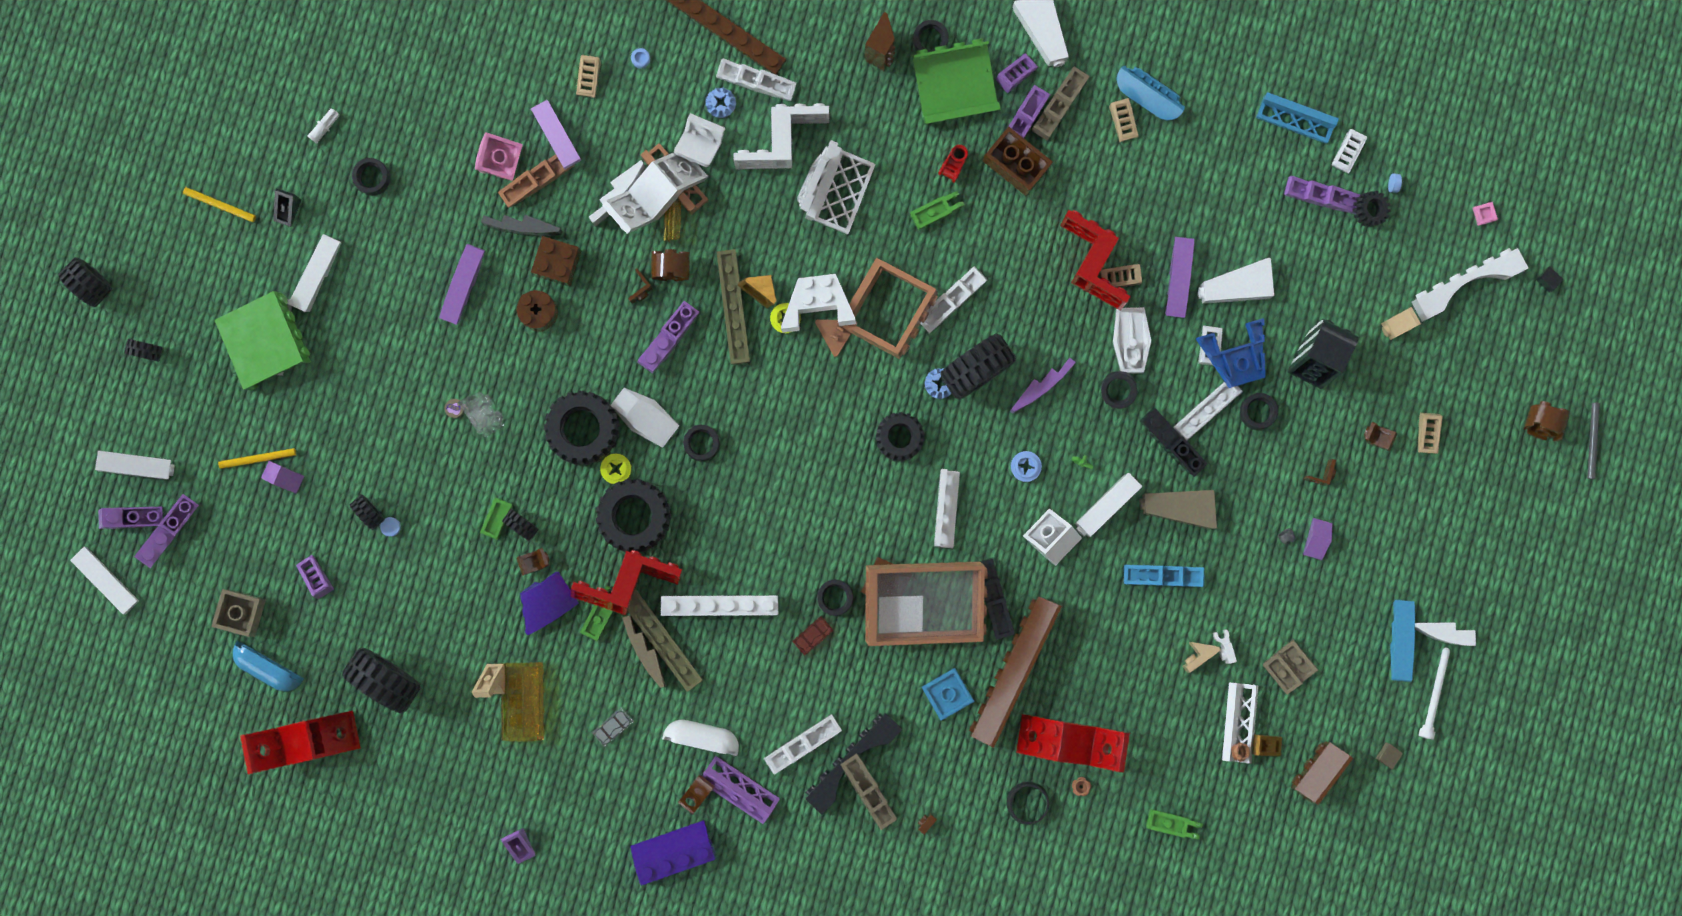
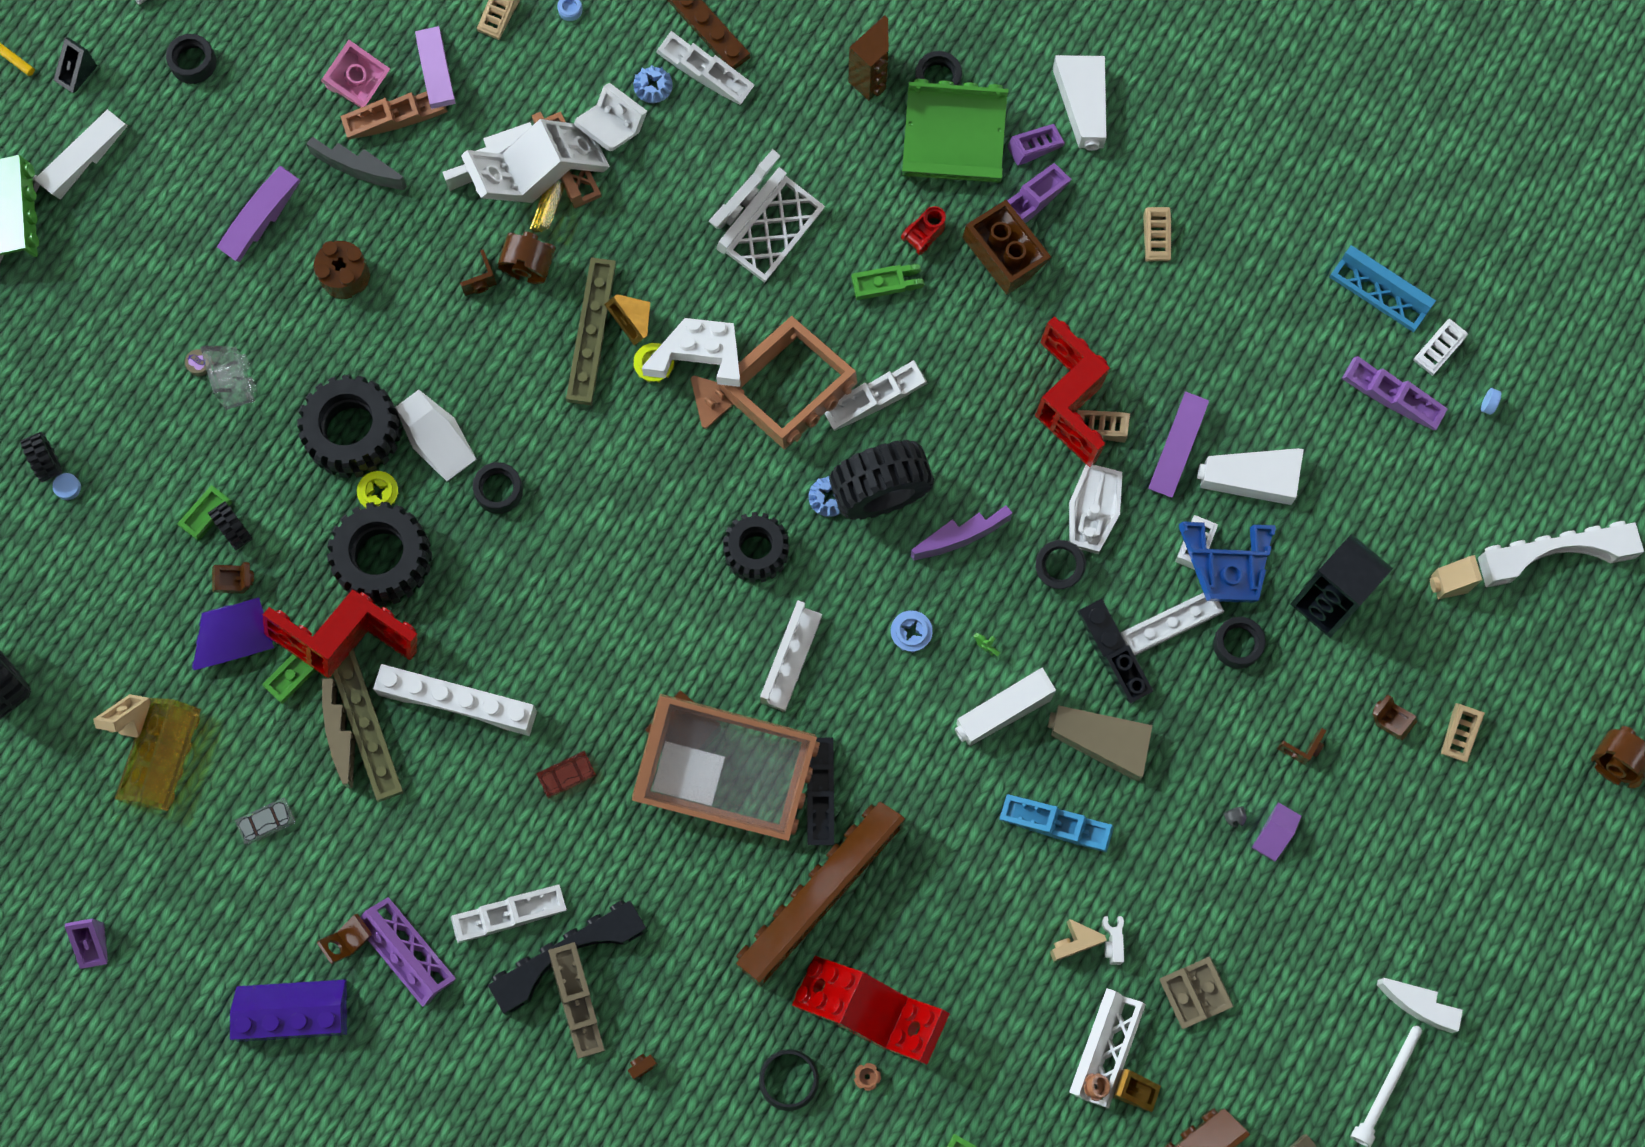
camera: 15 degrees right, 10 degrees down
(556, 261) = (385, 216): reddish brown brick -> none
(668, 337) = (498, 346): medium lavender slope -> none
(702, 736) = (379, 867): white brick -> none
(782, 122) = (719, 125): white bracket -> none
(820, 597) = (610, 711): black tyre -> none
(947, 694) = (722, 901): dark azure tile -> none
(1052, 536) = (921, 731): white slope -> none
(1060, 103) = (1081, 194): dark tan slope -> none
(1149, 93) = (1198, 209): dark azure brick -> none
(1381, 208) = (1464, 420): black tyre -> none
(1402, 641) = (1359, 999): dark azure slope -> none
(1485, 213) = (1602, 472): bright pink tile -> none

